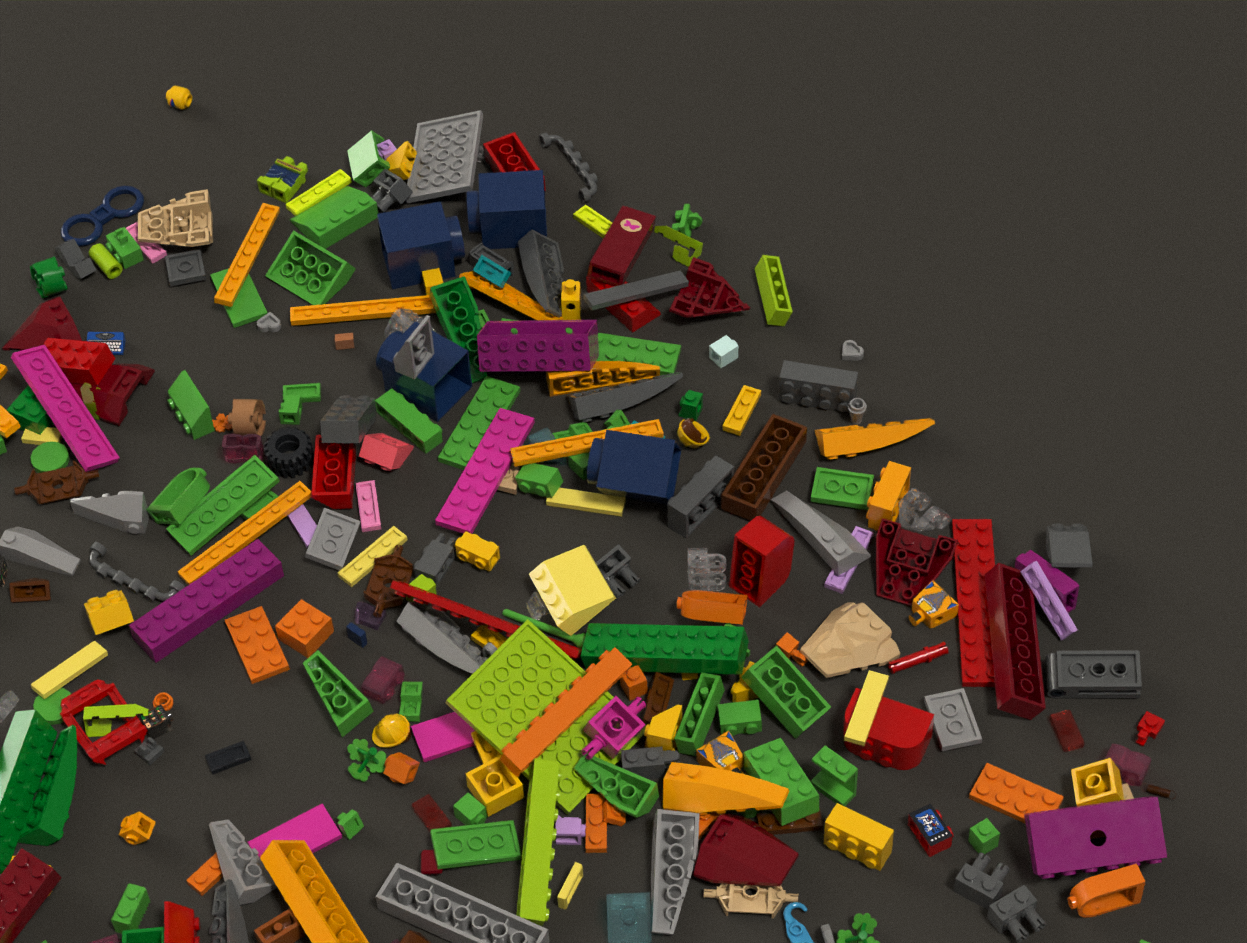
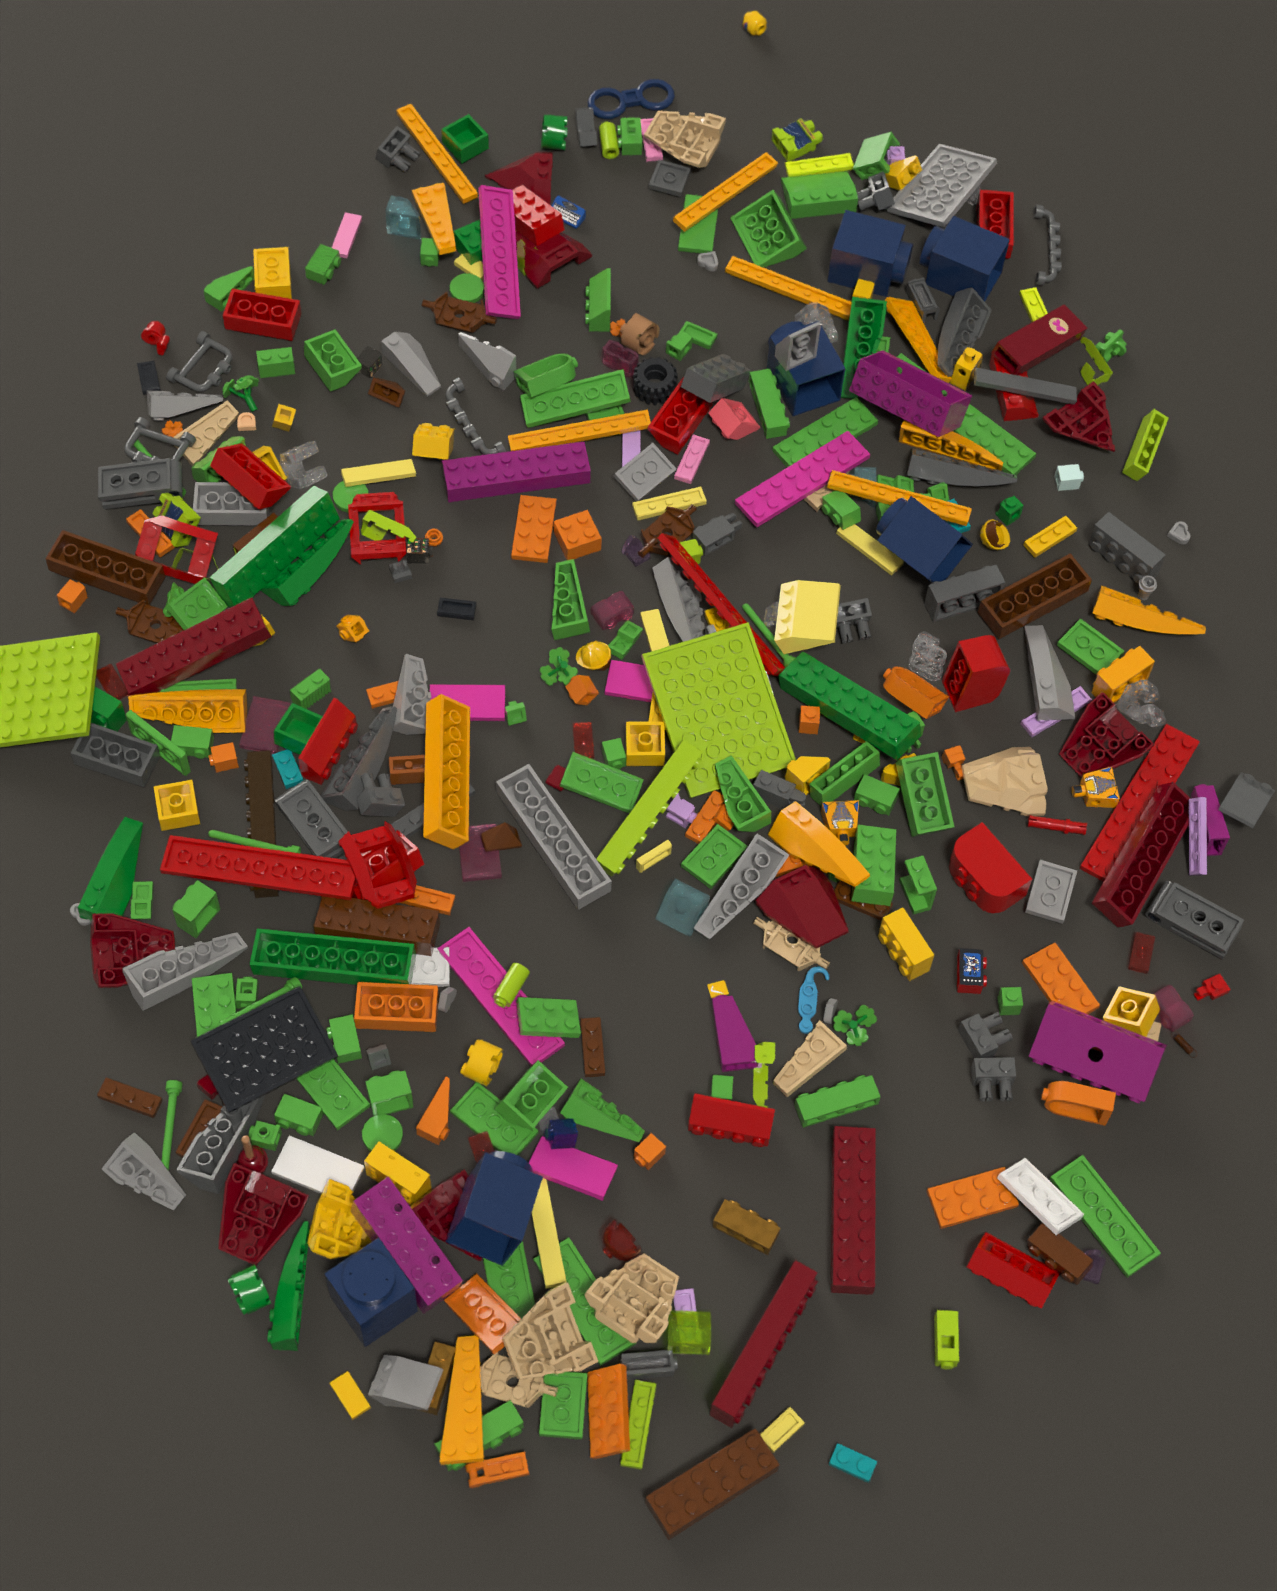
camera: 25 degrees right, 10 degrees up
(344, 341) = (759, 307): nougat slope -> none
(356, 634) = (615, 562): dark blue tile -> none
(434, 678) = (654, 629): none -> light yellow tile
(477, 551) = (753, 543): yellow brick -> none
(492, 271) = (915, 308): teal plate -> none
(565, 712) = (734, 714): orange brick -> none
(612, 739) = (770, 737): dark pink brick -> none
(626, 855) = (714, 856): none -> bright green plate
(657, 697) = (821, 742): reddish brown plate -> none
(866, 708) = (978, 843): light yellow tile -> none

